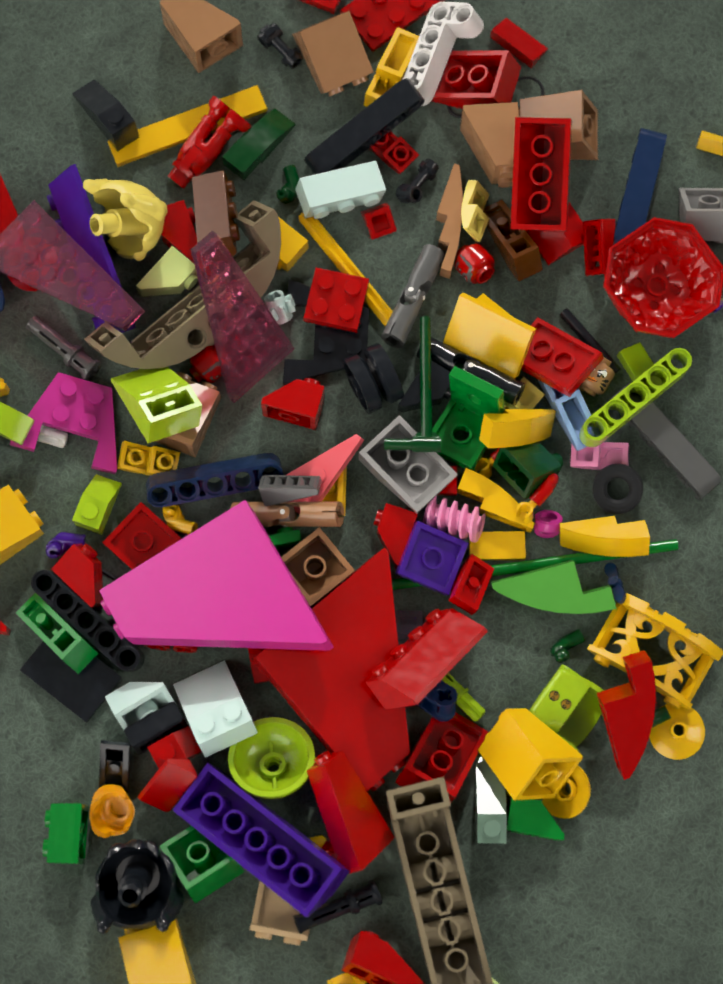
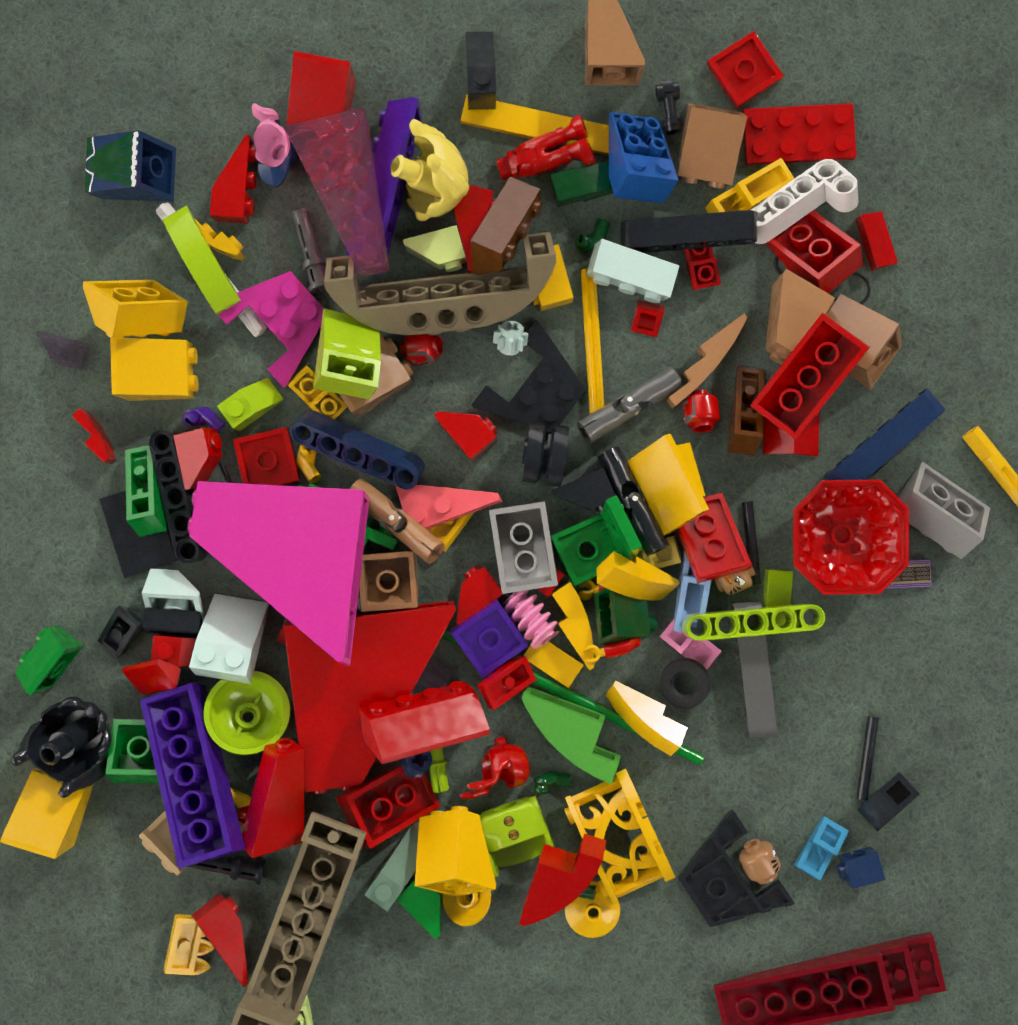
camera: 40 degrees right, 10 degrees up
(111, 811) = (93, 664): light orange hair -> none
(242, 327) = (463, 334): clear pink wing -> none
(285, 100) = (639, 159): none -> blue slope
(286, 488) = (409, 500): dark grey slope -> none
(336, 300) = (562, 364): red plate -> none
(413, 193) = (692, 313): black bar -> none
(426, 439) = (550, 539): dark green bar -> none
(472, 213) = (727, 370): light yellow slope -> none
(517, 655) = (501, 762): none -> red hair
(547, 523) = (607, 671): dark pink tile -> none
(597, 237) = (821, 453): red slope -> none
(615, 582) = (631, 748): dark blue piece -> none

